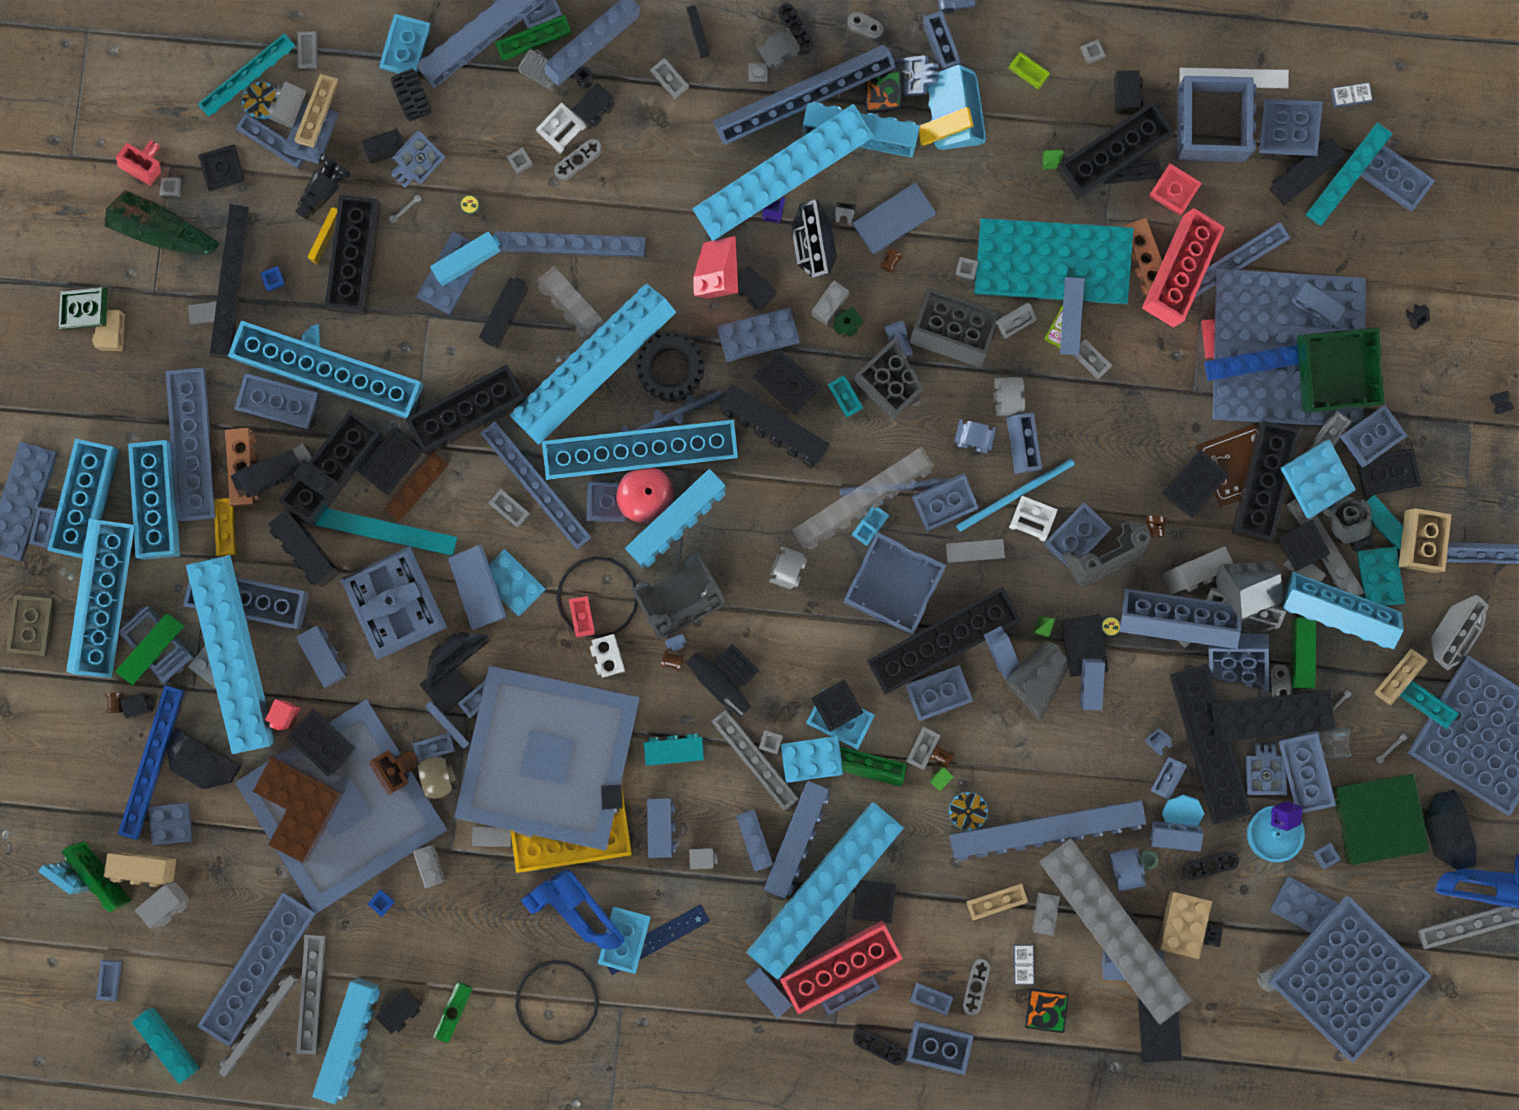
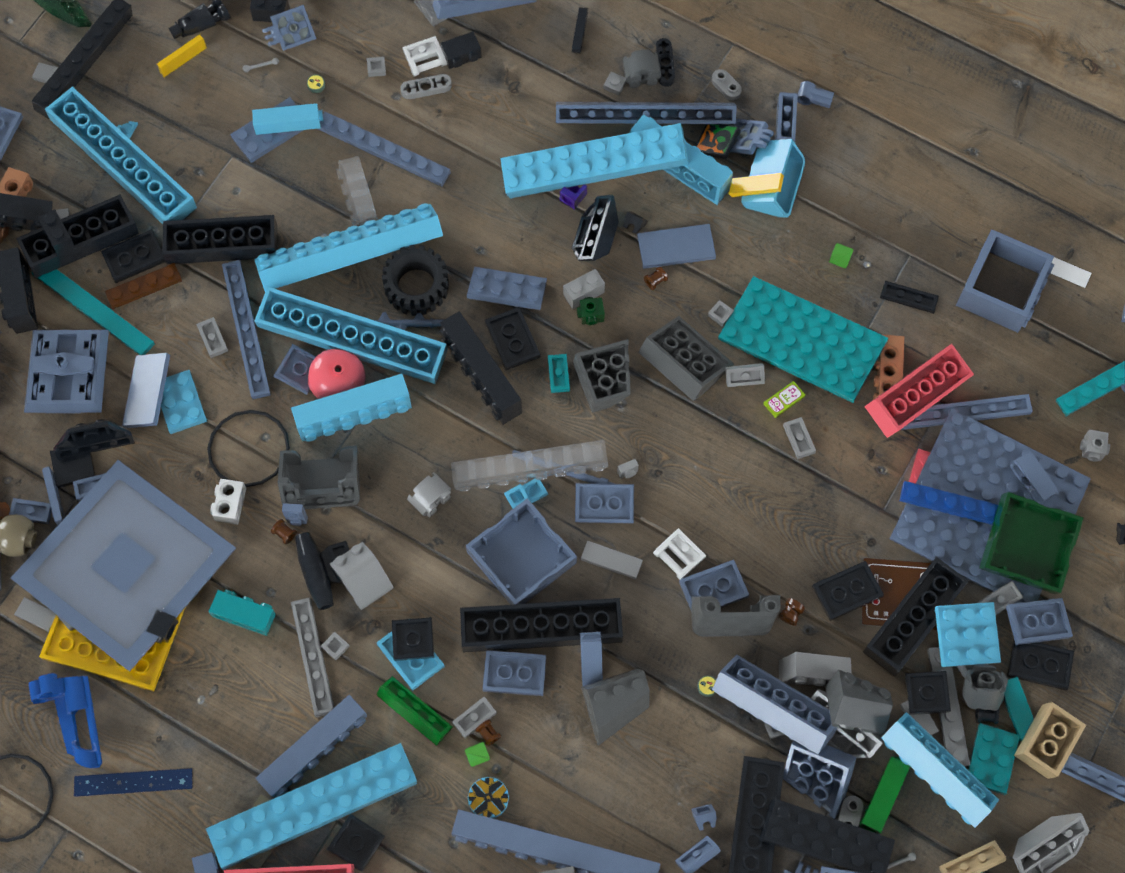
camera: 20 degrees right, 15 degrees down
(272, 278) = (119, 71): blue plate -> none
(276, 401) = (66, 166): sand blue plate -> none
(352, 254) = (195, 78): black brick -> none
(504, 312) = (296, 177): black brick -> none
(579, 74) = (464, 24): black bush -> none
(581, 616) = (224, 456): coral plate -> none
(634, 929) = (116, 761): medium azure plate -> none
(660, 827) = (192, 677): sand blue brick -> none
(669, 78) = (536, 56): light grey plate -> none
(702, 858) = (215, 723): light grey brick -> none
(716, 269) = (496, 220): coral slope -> none
(754, 840) = (272, 728): sand blue brick -> none
(755, 289) = (523, 249): black brick -> none
(763, 669) = (362, 575): none -> light grey piece
(812, 759) = (364, 678): medium azure plate -> none
(898, 330) = (634, 338): sand blue piece -> none
(952, 461) = (628, 469): none -> light grey plate
(974, 435) = (659, 455): sand blue brick -> none
(1009, 396) = (706, 434): light grey brick -> none
(1014, 495) = (672, 526): medium azure piece -> none
(1024, 443) = (701, 482): sand blue brick -> none
(1029, 70) = (854, 177): lime tile -> none
(1044, 626) = (643, 657): bright green slope -> none
(1072, 316) = (797, 390): sand blue tile -> none
(1083, 640) = (674, 693): black tile -> none
(1092, 684) = (663, 729): sand blue piece -> none
(1093, 51) = (918, 185): light grey tile -> none
(1115, 150) = (901, 270): black brick -> none
(1127, 91) = (934, 228): black brick -> none
(1175, 189) = (942, 327): coral plate -> none
(1290, 127) = (1072, 317): sand blue plate -> none
(1306, 172) = (1072, 362): black brick -> none
(1359, 246) = (1095, 445): none -> light grey brick

